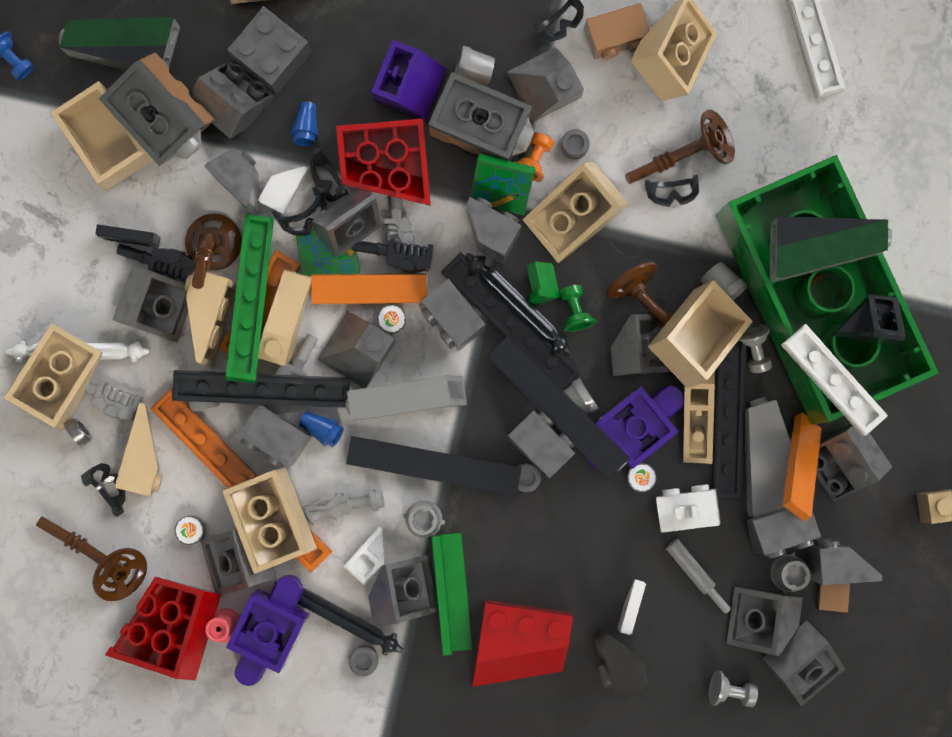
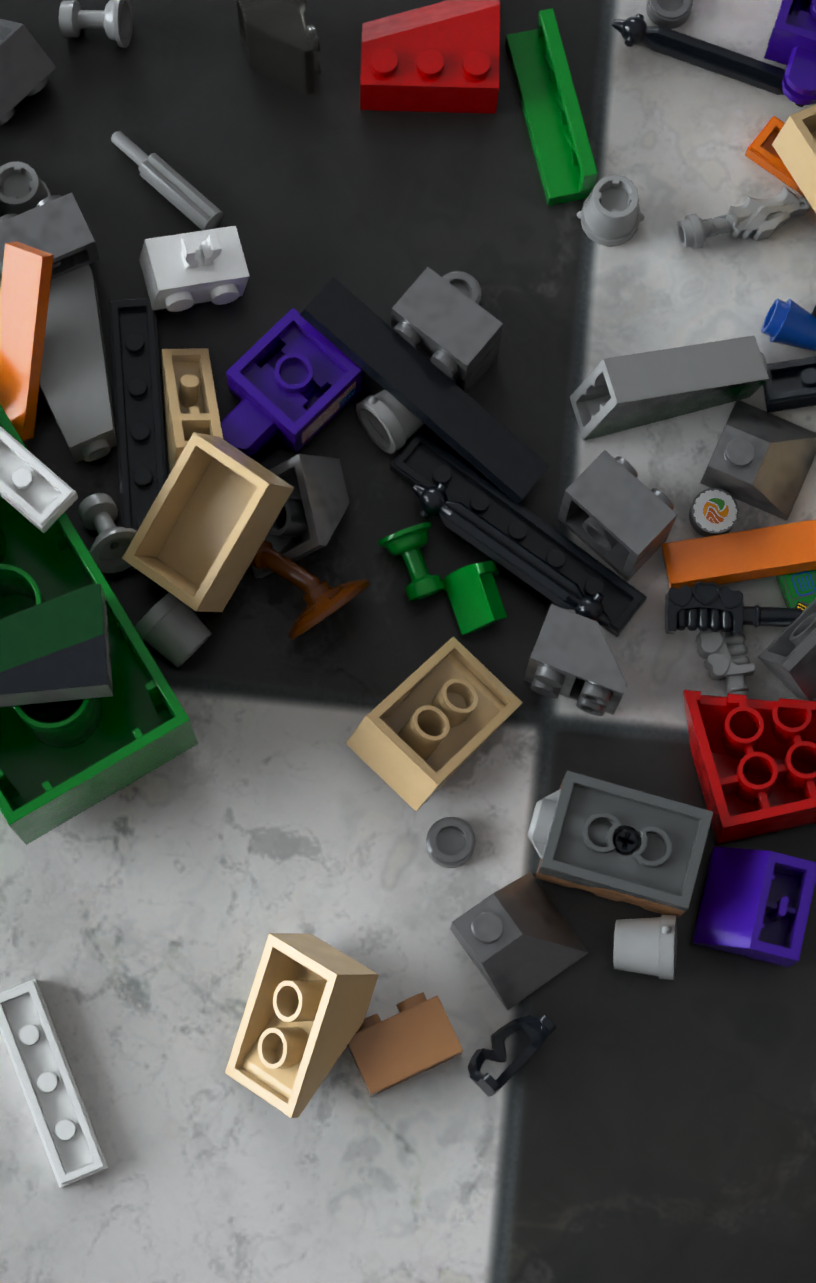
camera: 170 degrees right, 10 degrees down
(368, 558) = (688, 148): white tile -> none
(403, 592) = (626, 97): flat silver slope -> none
(434, 465) = (609, 292): black tile -> none
(503, 183) = (568, 743): green tile -> none
(540, 143) = (523, 788): orange piece -> none
(631, 607) = (268, 113): white tile -> none
(641, 478) = (268, 310): tile -> none
(650, 188) = (313, 777): black helmet -> none
(716, 137) = (228, 866): reddish brown dish -> none
(763, 620) = (58, 124): flat silver slope -> none

